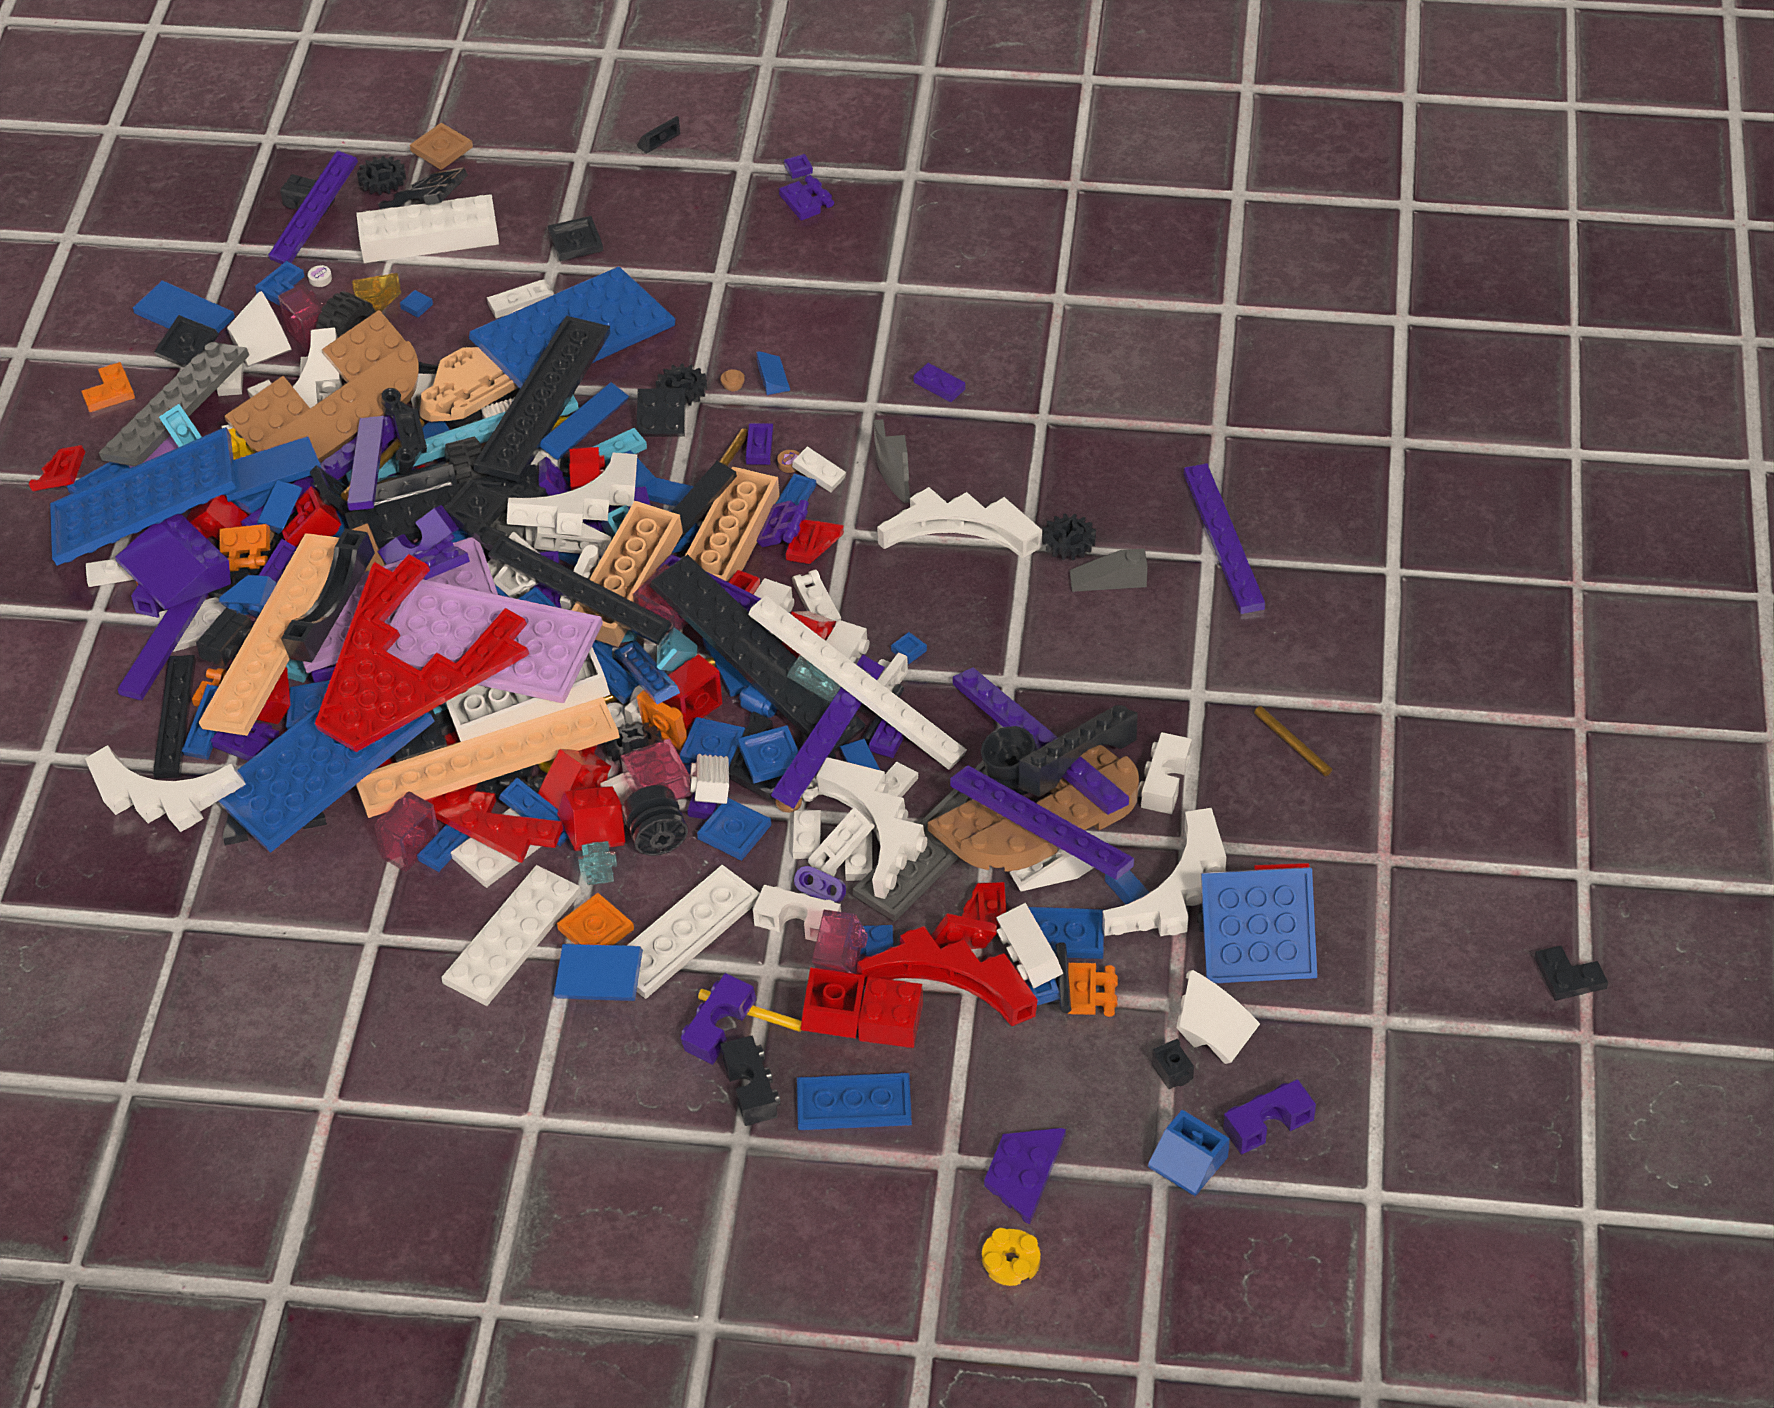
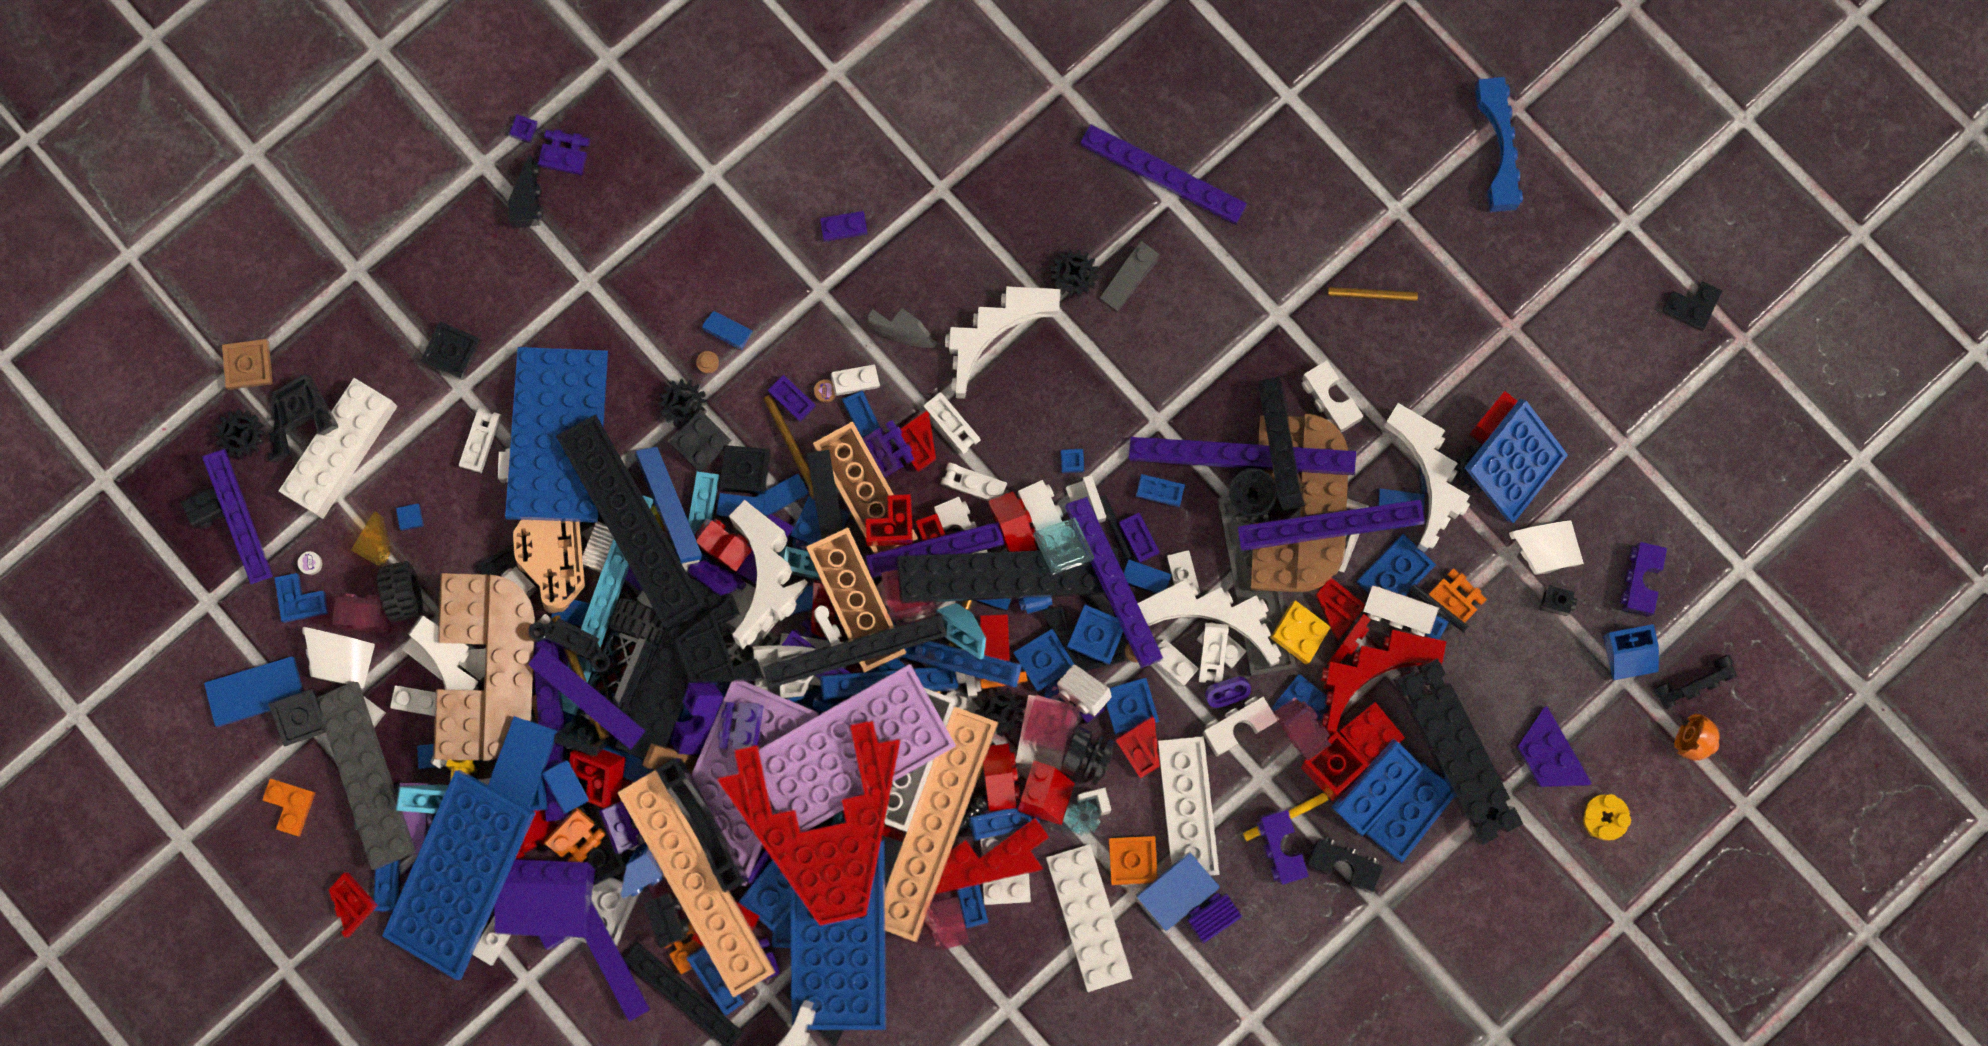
camera: 50 degrees left, 30 degrees up
(600, 1018) = (1214, 917): none -> dark purple brick
(623, 854) = (1101, 798): none -> white panel
(659, 135) = (392, 198): black slope -> none
(668, 454) = (745, 469): none -> black plate
(703, 856) = (1141, 746): none -> red wing
(716, 549) = (896, 528): none -> red brick
(743, 197) = (523, 201): none -> black slope
(846, 1046) = (1377, 787): none -> blue tile
(851, 549) = (951, 422): none -> white plate
(857, 682) = (1093, 531): white plate -> none
(928, 894) = (1300, 632): none -> yellow plate
(943, 1079) = (1458, 751): none -> black brick
(948, 717) = (1160, 490): none -> blue plate
(1164, 1267) = (1698, 738): none -> orange cylinder
(1228, 1232) = (1725, 671): none -> black plate
(1497, 757) = (1493, 103): none -> blue arch

